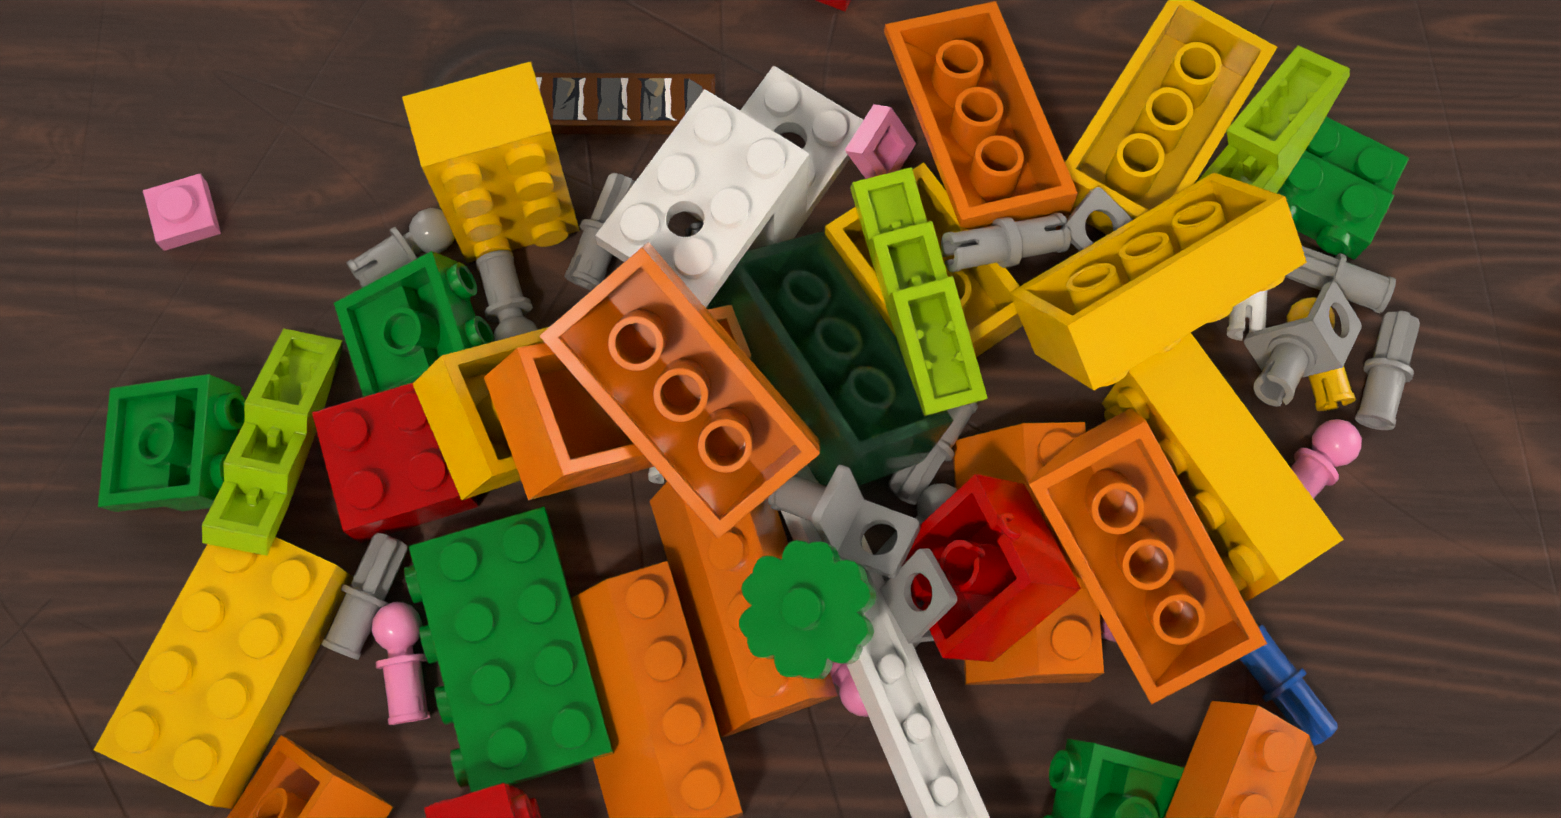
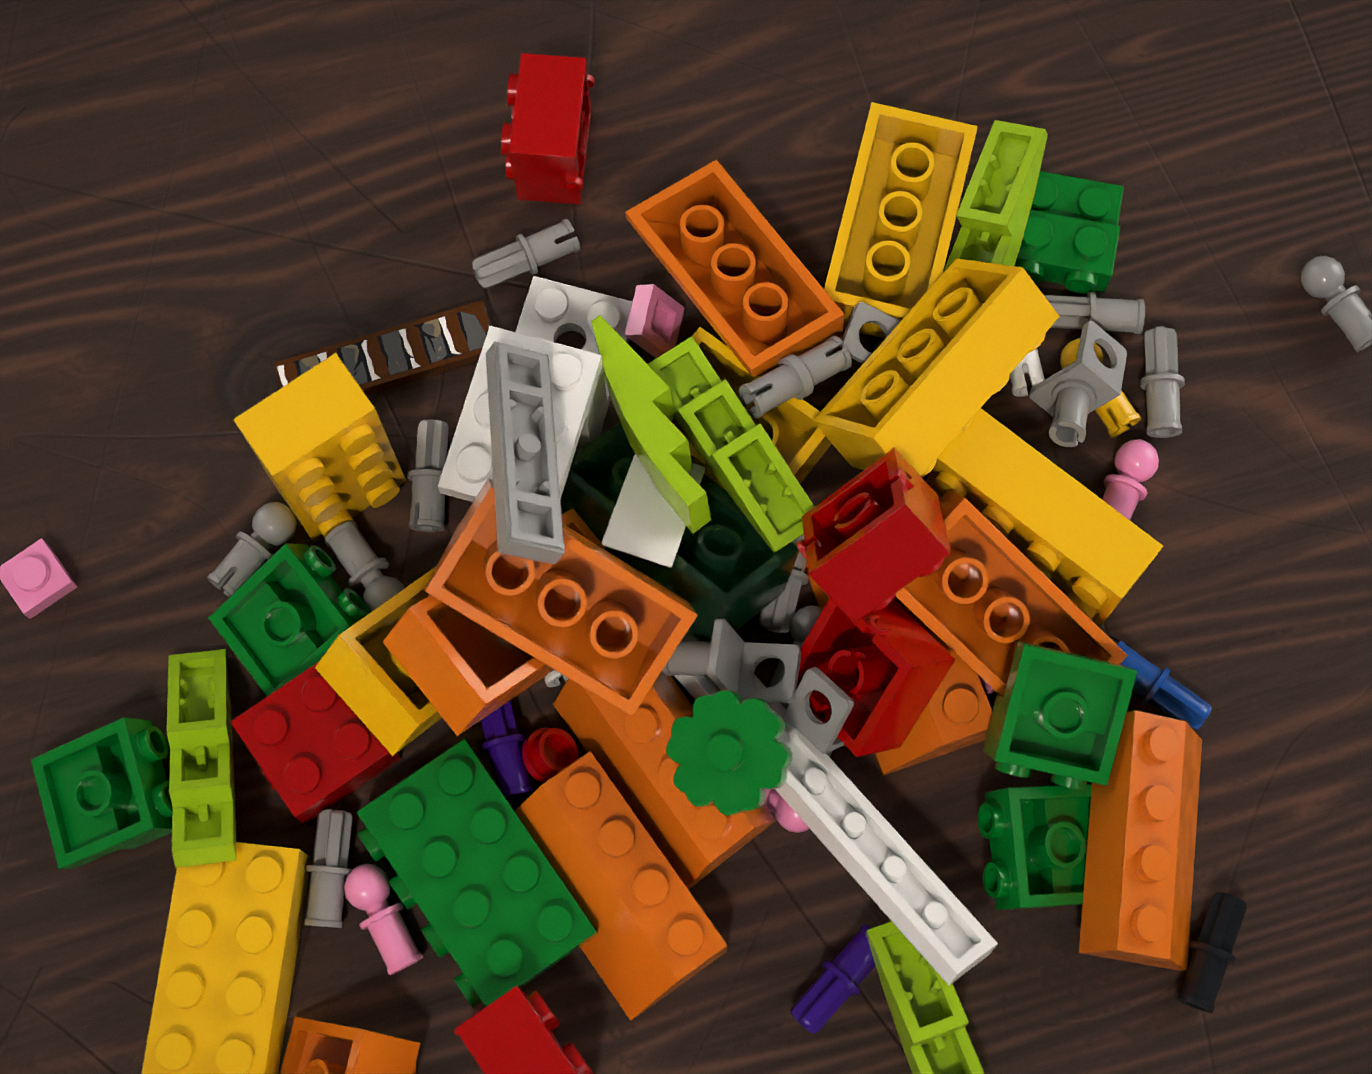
camera: 15 degrees left, 0 degrees up
(585, 533) = (505, 752): none -> dark purple axle
(627, 548) = (548, 753): none -> red plate
(689, 227) = (524, 454): none -> light grey plate
(772, 42) = (524, 255): none -> light grey axle
(814, 329) = (644, 520): none -> white sticker
(838, 233) = (646, 416): none -> lime slope
(1036, 431) = (874, 536): none -> red brick
(1174, 685) = (1059, 716): none -> green plate

